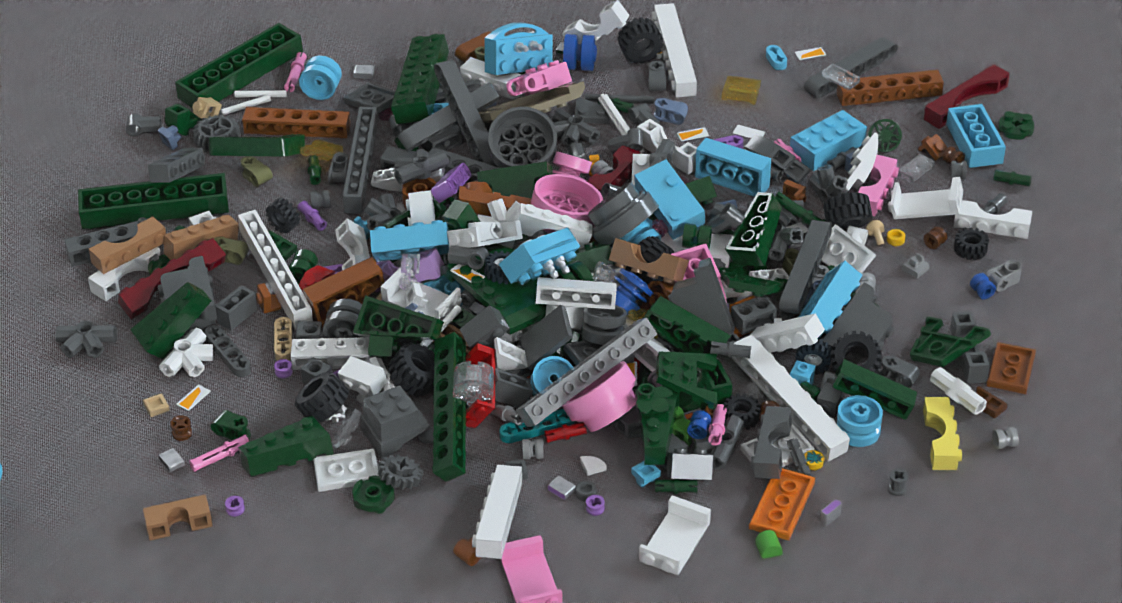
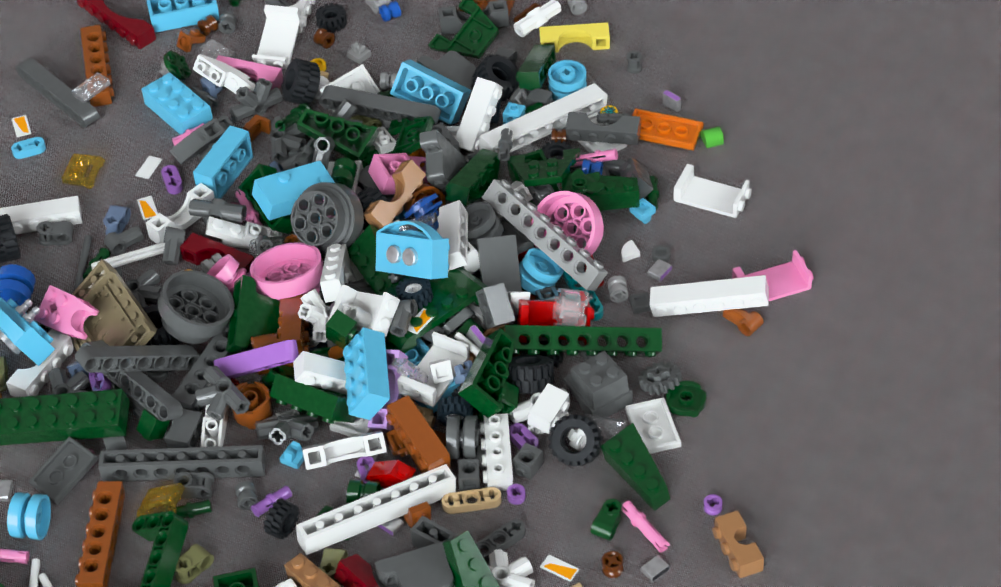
camera: 90 degrees left, 5 degrees up
(453, 322) = (475, 336): none -> flat silver piece
(590, 505) = (683, 246): medium lavender bush -> none

